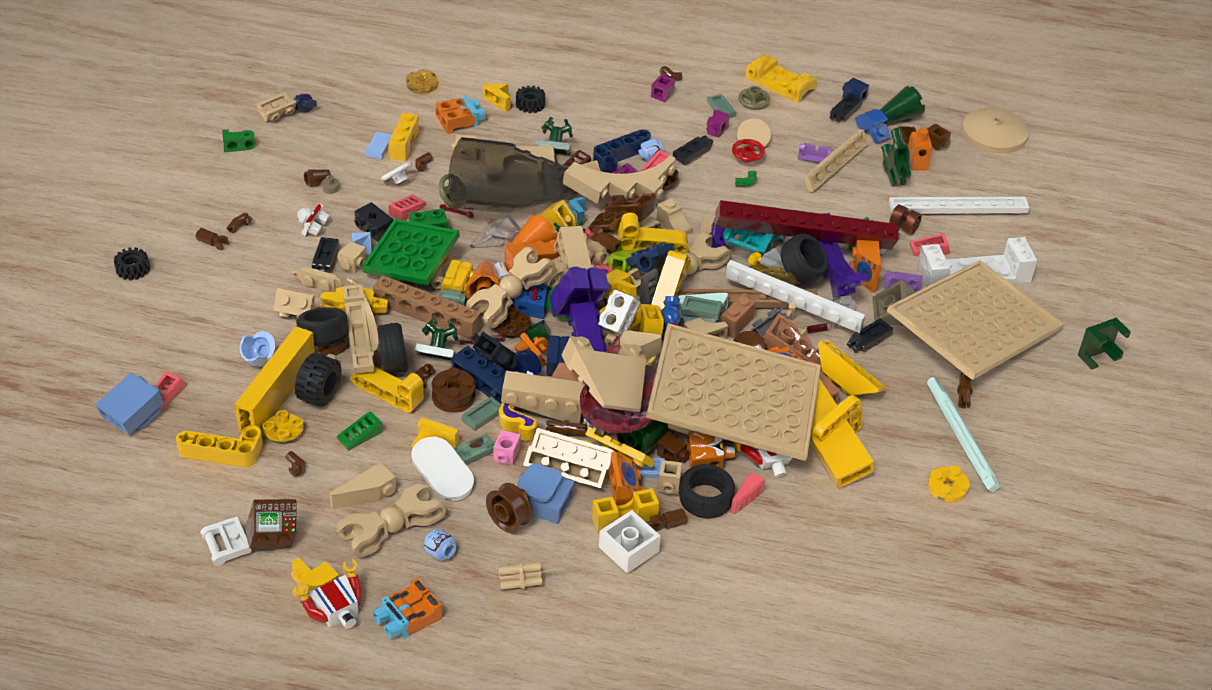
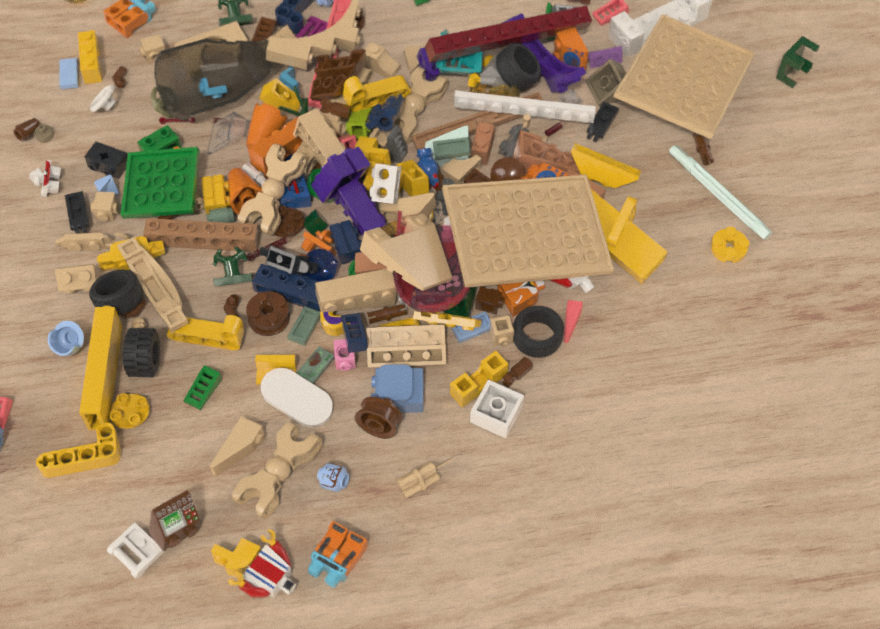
camera: 20 degrees left, 15 degrees up
(296, 462) = (162, 444): reddish brown arm -> none
(392, 348) = (195, 294): black tyre -> none
(400, 211) = (120, 140): coral slope -> none
(501, 195) = (214, 91): none -> dark azure bracket
(523, 430) = (357, 343): none -> dark blue slope
(623, 478) = (464, 350): orange slope -> none
(671, 277) = (412, 130): beam -> none

